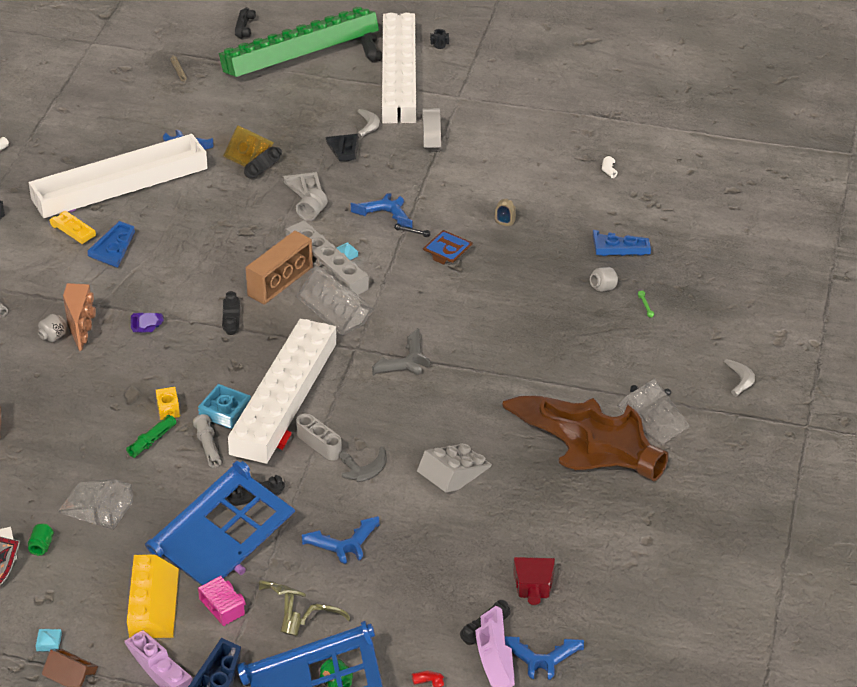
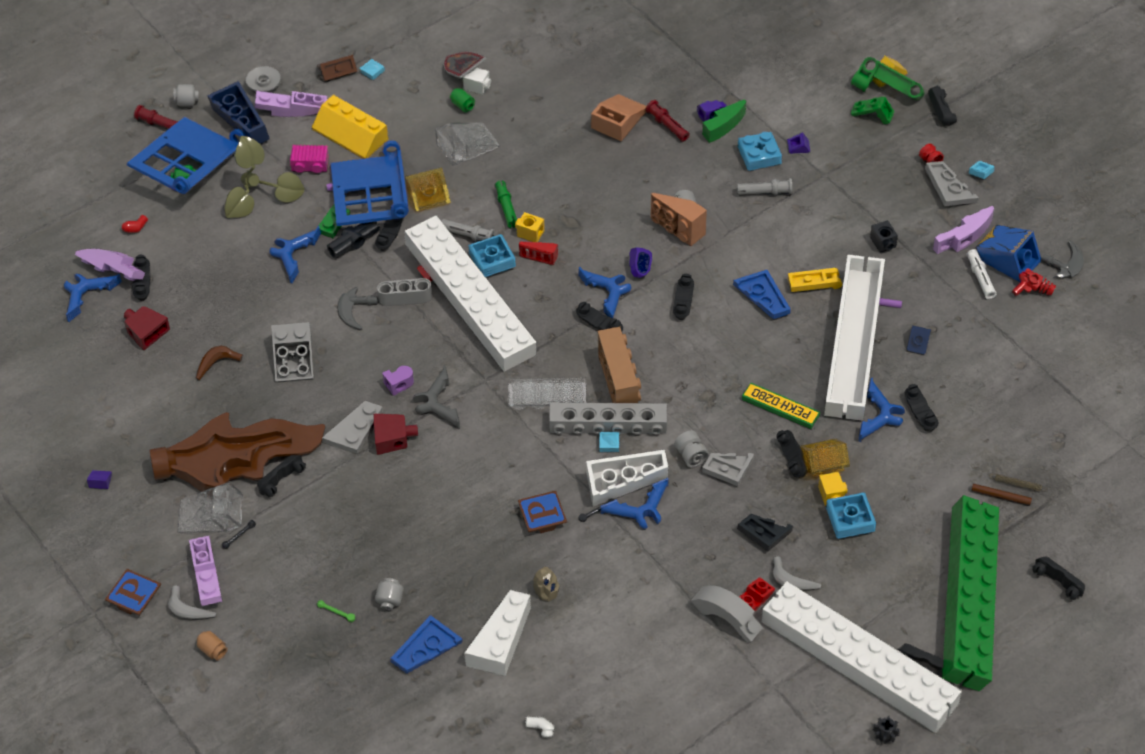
camera: 130 degrees right, 10 degrees up
(82, 150) = (918, 339): none -> dark blue bracket
(148, 287) = (683, 296): none -> black piece
(159, 125) = (920, 408): none -> black piece
(175, 493) = (427, 189): none -> clear yellow slope
(186, 324) = (610, 284): none -> blue piece
(189, 381) = (539, 251): none -> red slope
(200, 78) = (1001, 494): none -> reddish brown bar
(220, 191) = (781, 405): none -> tile
(275, 131) = (831, 486): none -> yellow brick
(282, 540) = (328, 225): none -> green plate
(289, 114) = (861, 516): none -> dark azure brick
(303, 509) = (352, 238): none -> black piece
(373, 221) = (624, 474): none -> white wedge
(397, 130) = (757, 593): none -> red slope
(412, 386) = (398, 380): none -> medium lavender leg
(468, 359) = (392, 432): none -> dark red torso
(489, 386) = (354, 429): none -> light grey wing
(513, 515) = (213, 355): none -> reddish brown piece
(568, 210) = (498, 639): none -> white wedge
(576, 396) = (284, 469): none -> black piece
(704, 500) = (99, 479): none -> dark purple slope
(706, 379) = (205, 570): none -> lavender slope
(752, 340) = (211, 645): none -> medium nougat brick
(768, 406) = (132, 592): none -> piece

